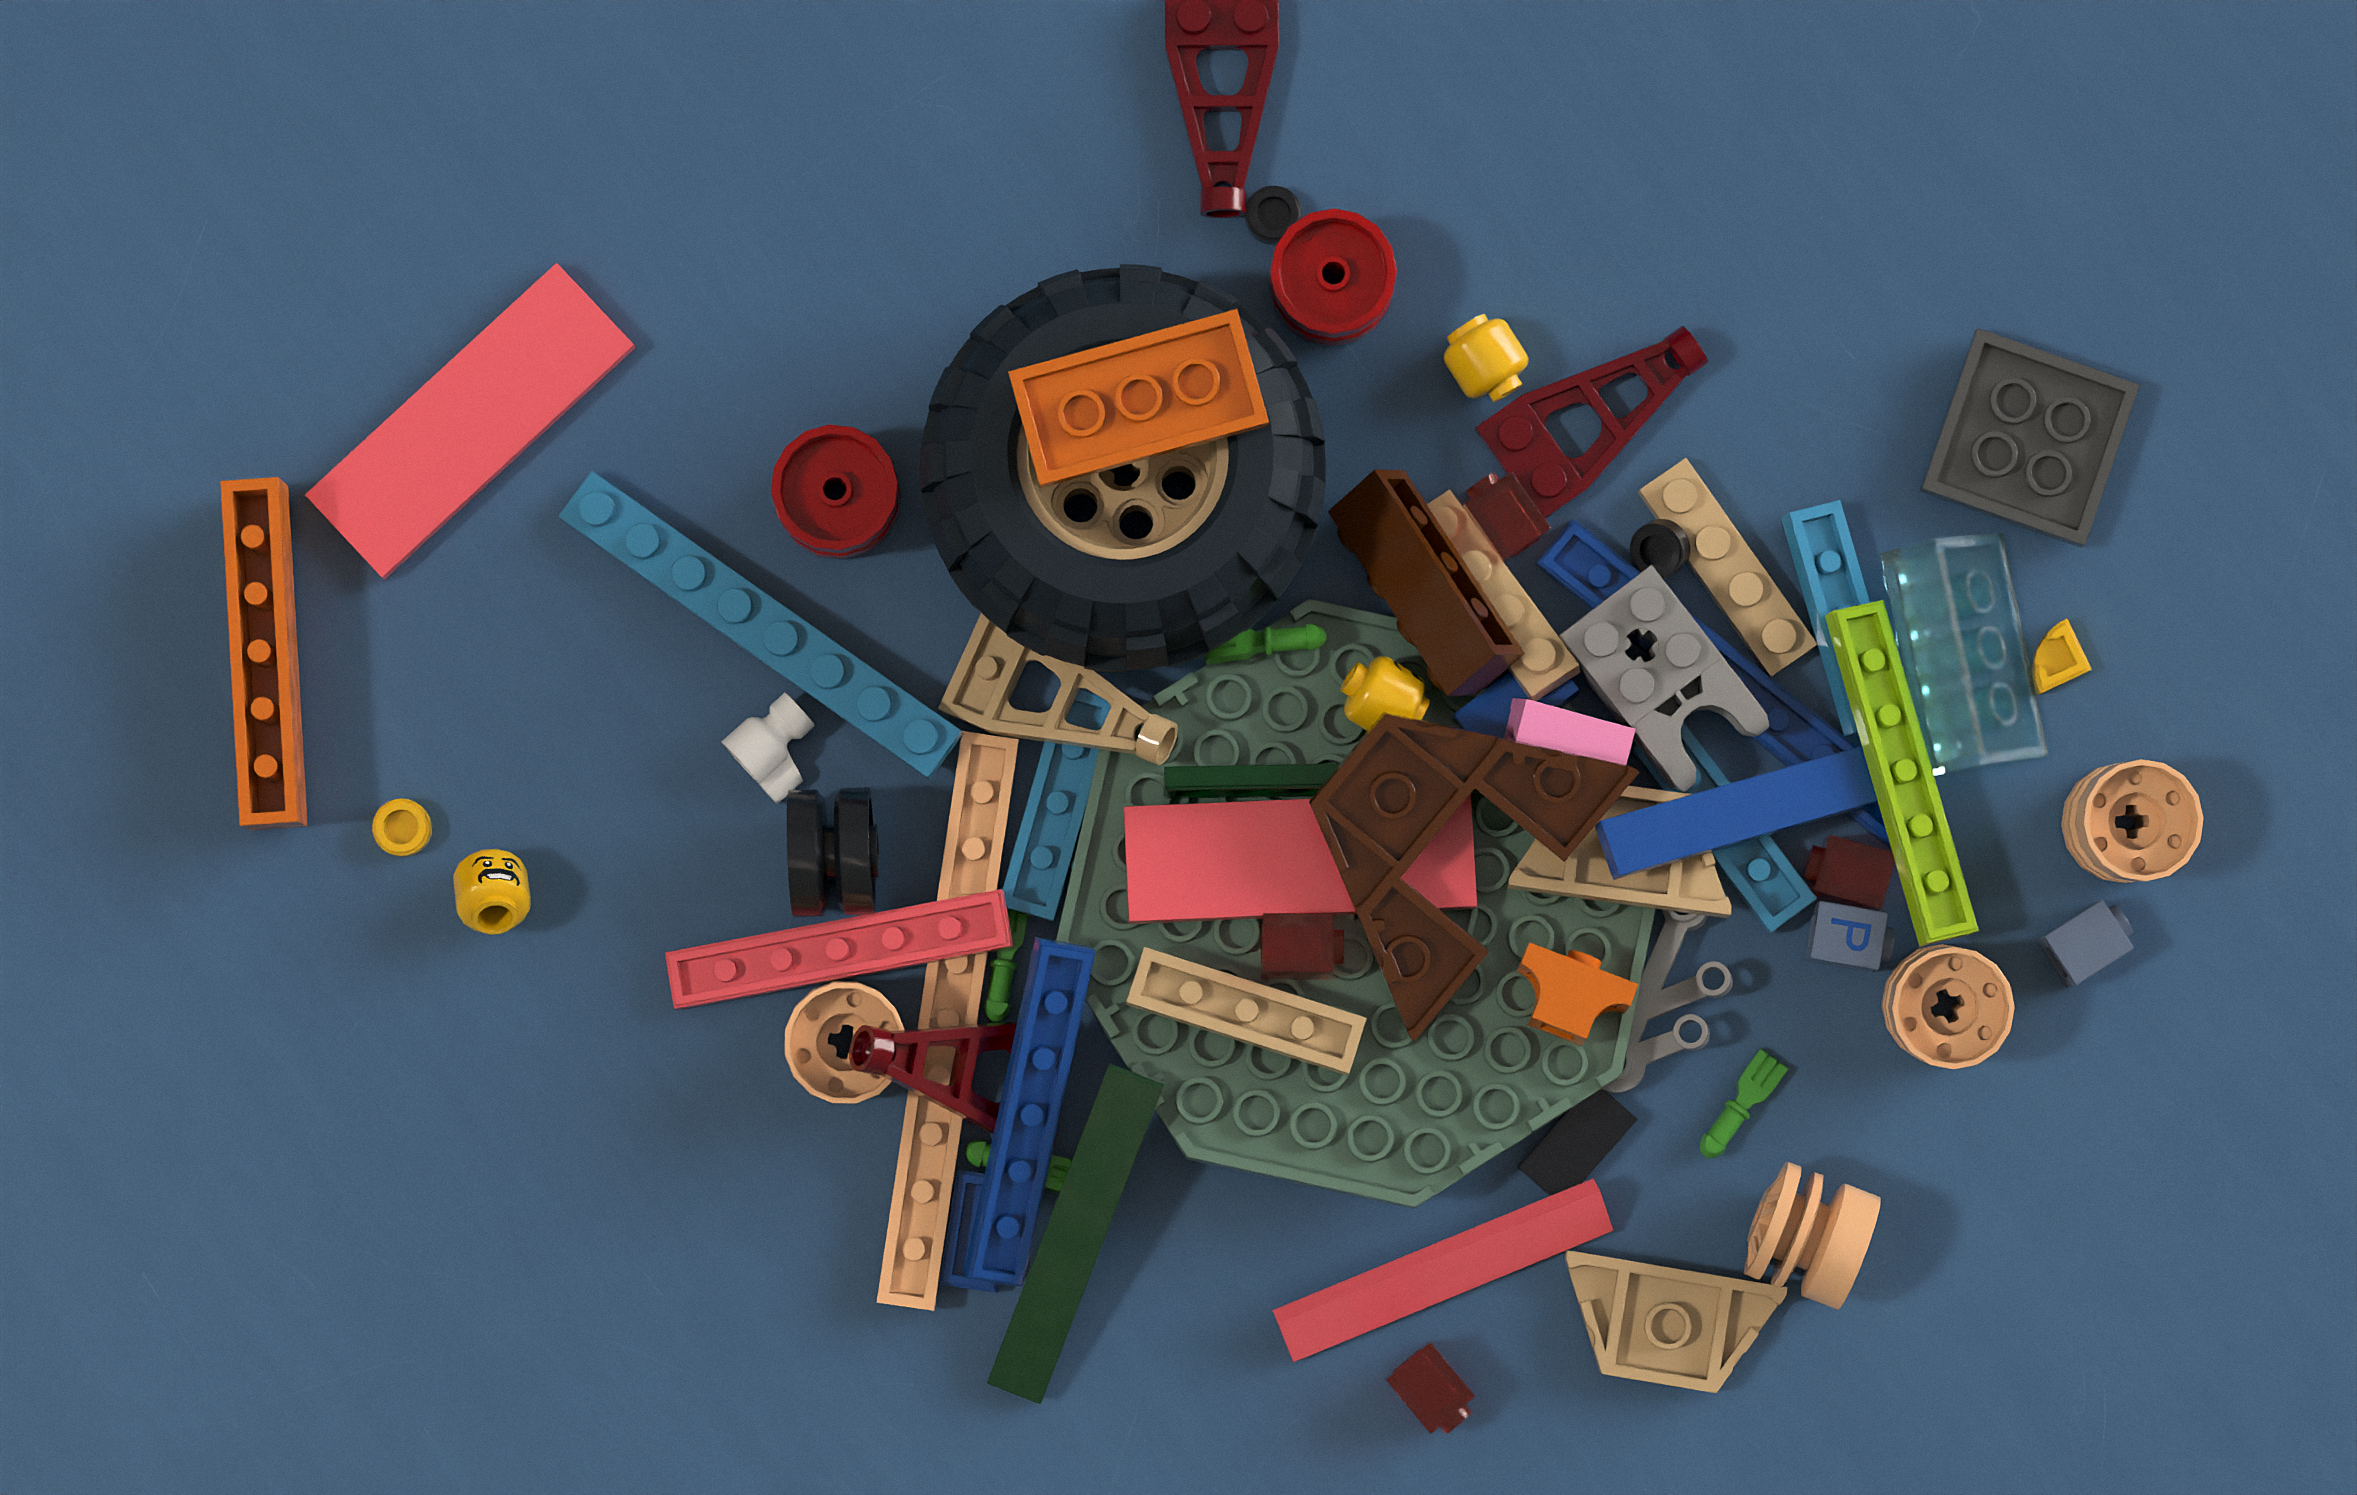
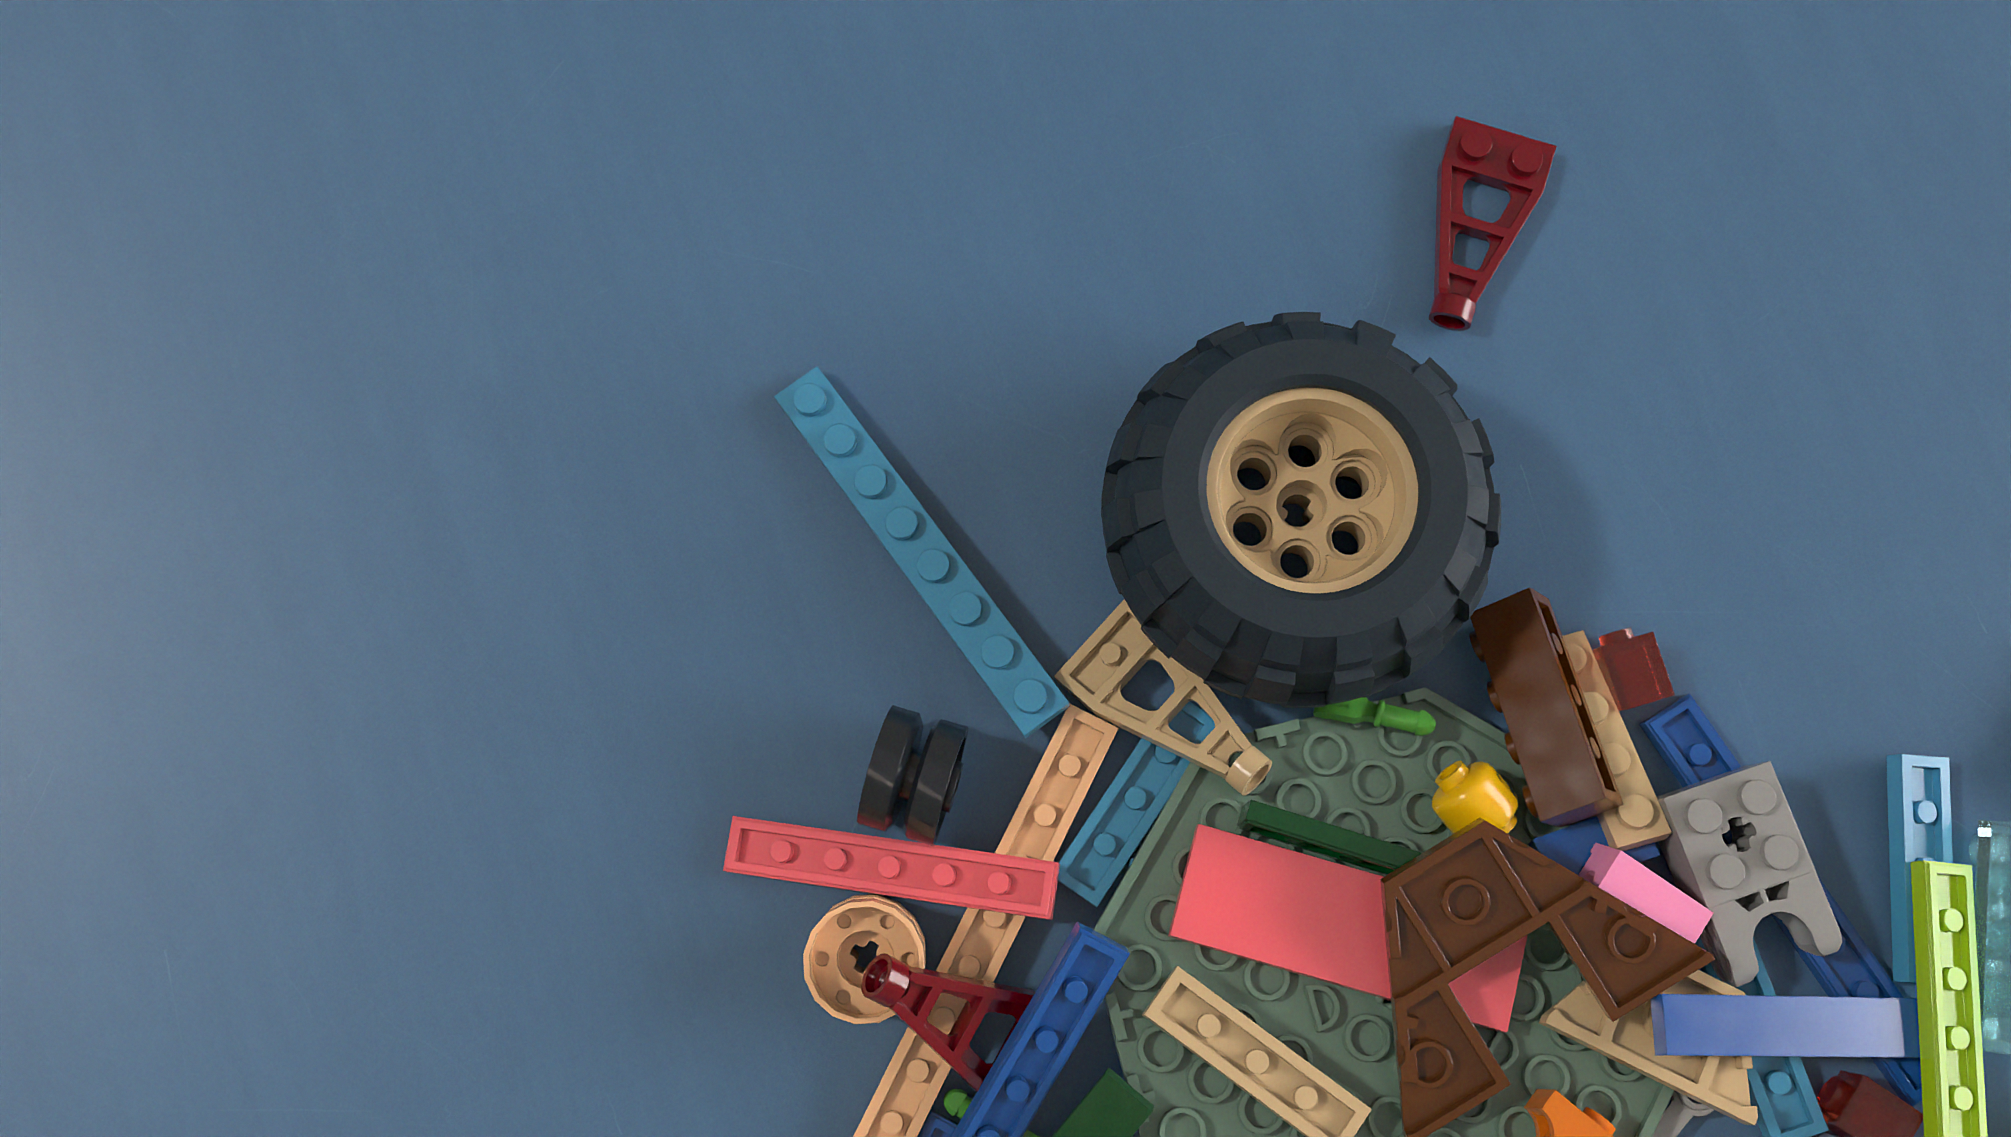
camera: 25 degrees right, 5 degrees down
(263, 654) = (470, 431): orange brick -> none
(402, 827) = (540, 625): yellow tile -> none
(470, 421) = (727, 291): coral tile -> none
(491, 891) = (595, 708): yellow head -> none
(762, 746) = (884, 659): white piece -> none
(843, 525) = (1022, 419): red wheel -> none
(1002, 970) = (1035, 934): bright green piece -> none
(1138, 398) = (1350, 437): orange plate -> none
(1271, 213) = (1492, 338): black tile -> none
(1300, 946) = (1326, 1015): clear red brick -> none
(1347, 246) = (1538, 403): red wheel -> none
(1485, 358) = (1653, 522): yellow head -> none
(1527, 449) = (1661, 606): dark red plate -> none
(1660, 545) = (1764, 742): black tile -> none
(1729, 569) = (1820, 787): tan plate -> none

